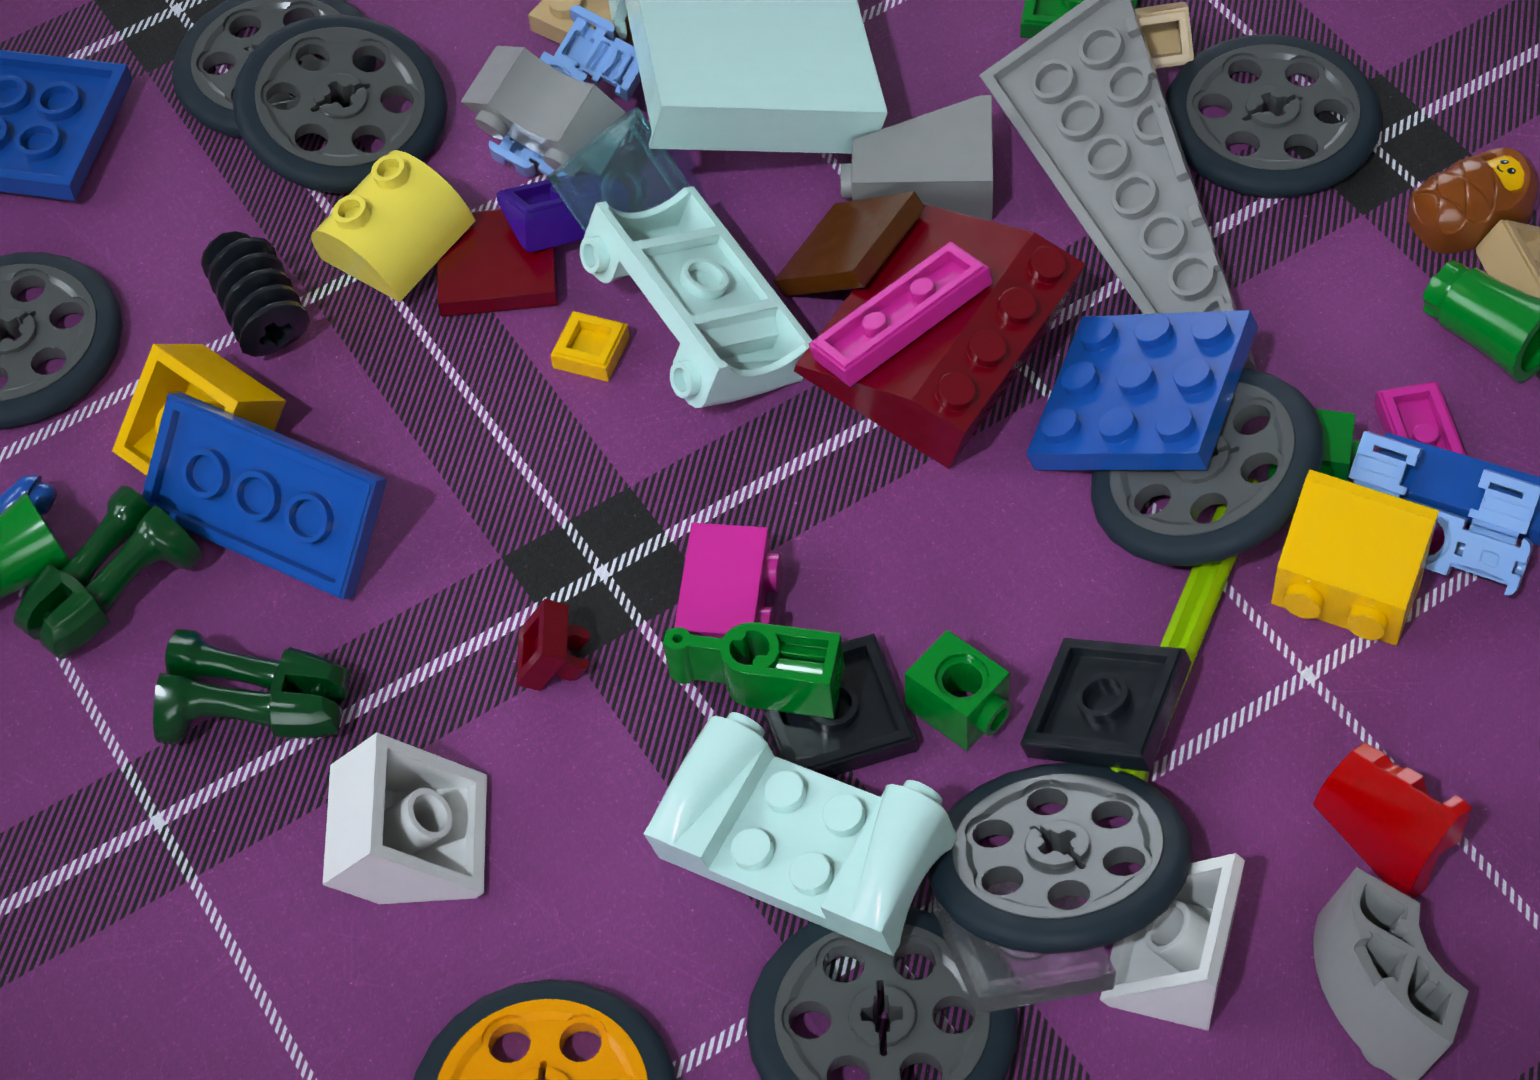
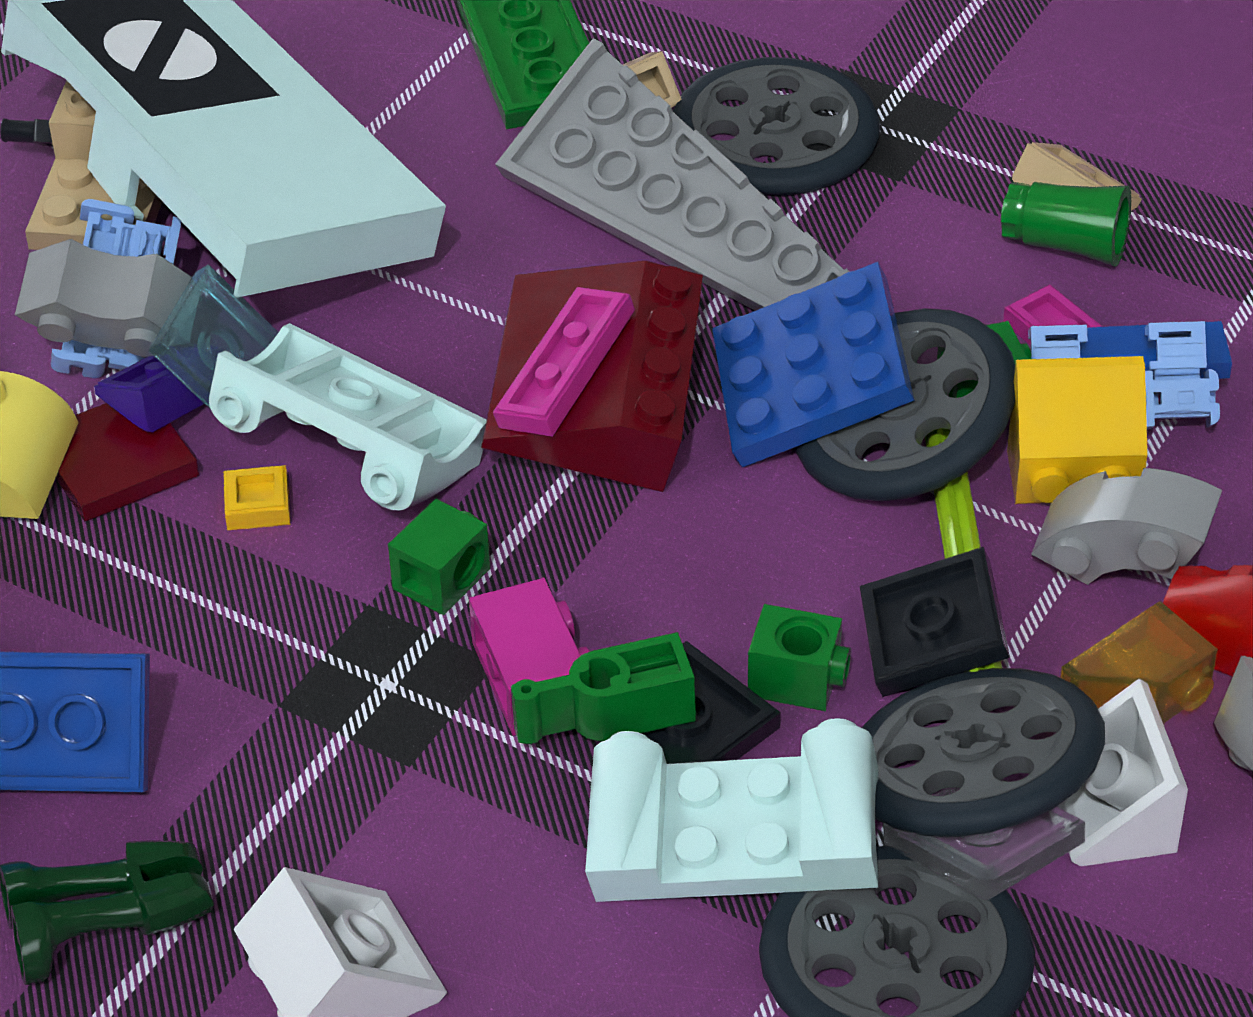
camera: 30 degrees left, 10 degrees down
(544, 647) = (383, 756): dark red tile -> none
(704, 465) = (439, 556): none -> green brick
(850, 244) = (468, 329): reddish brown tile -> none
(937, 155) = (480, 250): light grey slope -> none
(1278, 829) = (1158, 651): none -> clear yellow slope
(1342, 676) = (1127, 524): none -> light grey brick
(1470, 197) = (990, 138): dark orange piece -> none

